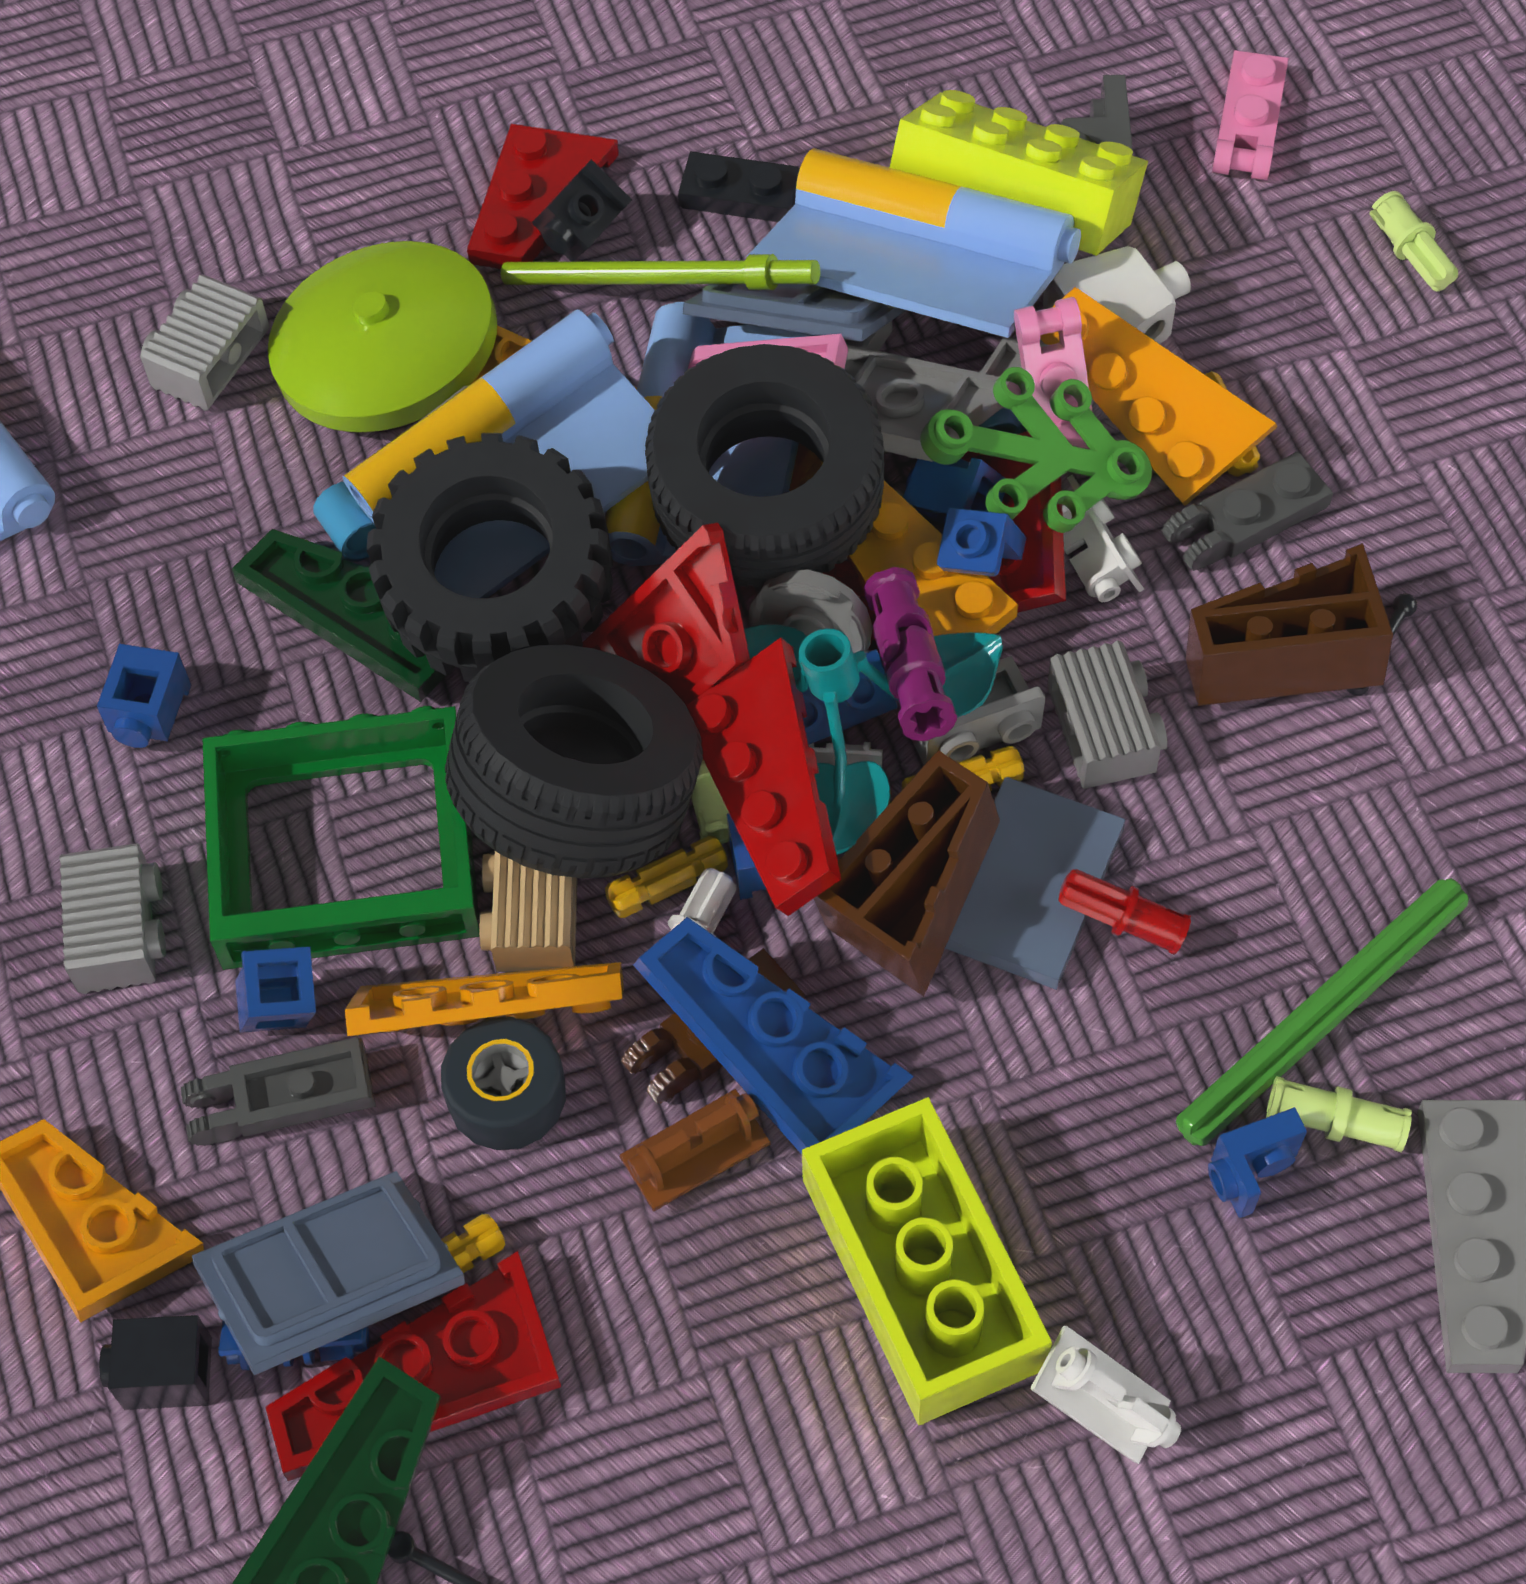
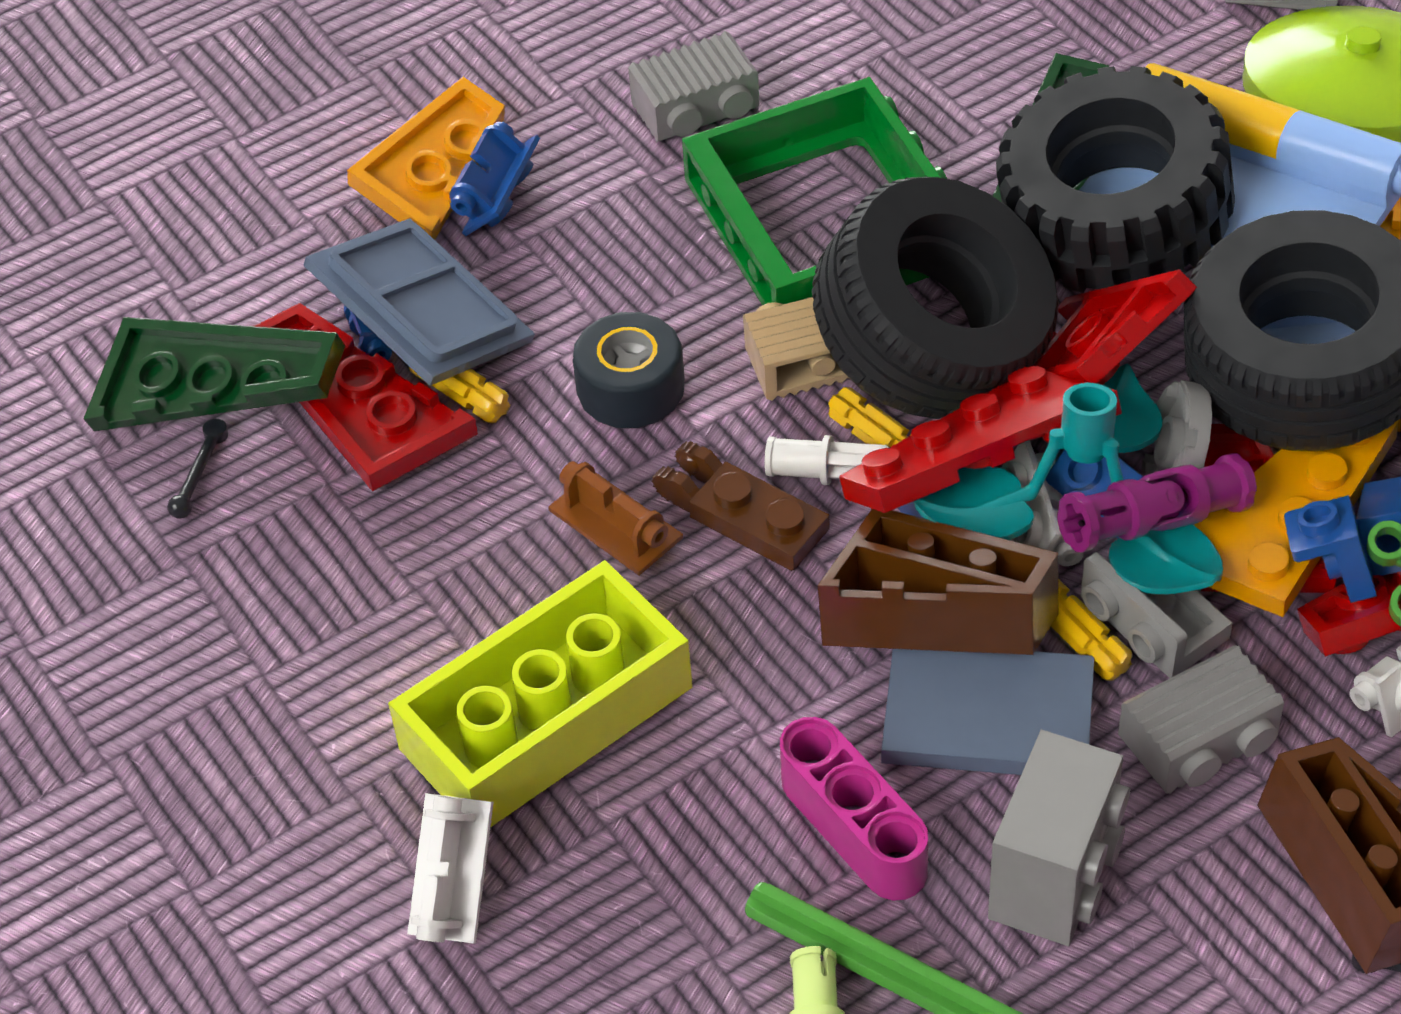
camera: 75 degrees right, 10 degrees down
(143, 694) = (906, 40): blue brick -> none
(157, 1362) = (317, 223): black brick -> none
(158, 1152) = (486, 193): none -> blue hinge
(275, 989) = (654, 192): blue brick -> none
(281, 1091) = (580, 241): dark grey hinge -> none
(482, 996) = (699, 324): light orange wing -> none
(775, 1047) = (722, 534): blue wing -> none
(1124, 910) = (975, 785): red axle -> none
(1139, 995) = (858, 835): none -> dark pink beam
(1222, 856) = (1057, 838): none -> light grey brick
(1258, 1147) = (744, 948): blue bracket -> none

